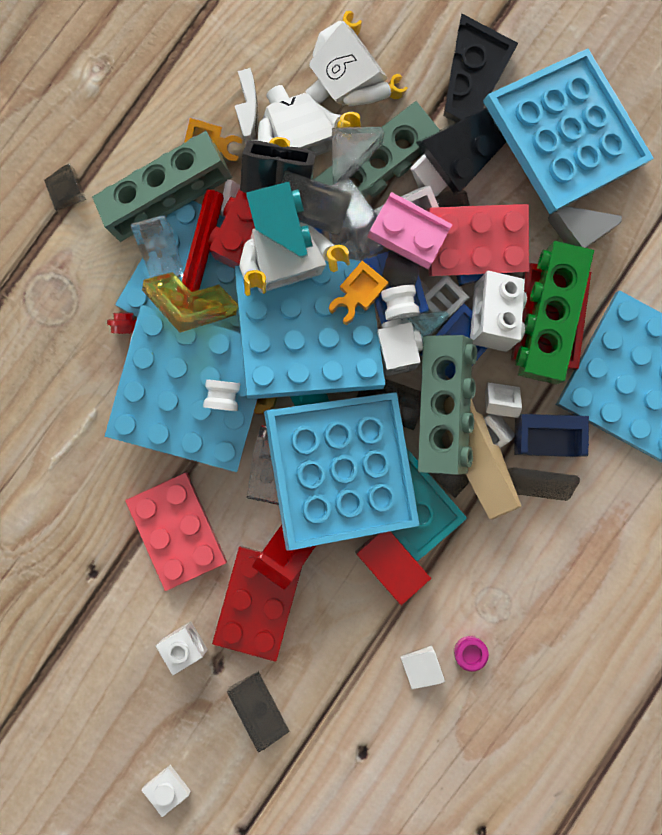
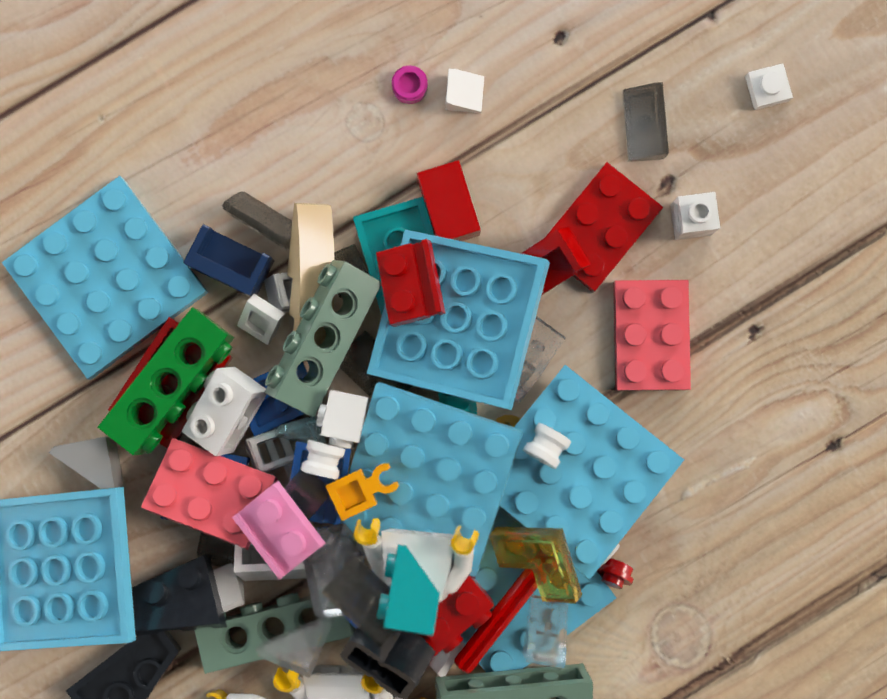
camera: 150 degrees left, 0 degrees up
(394, 481) = (410, 283): none -> red plate

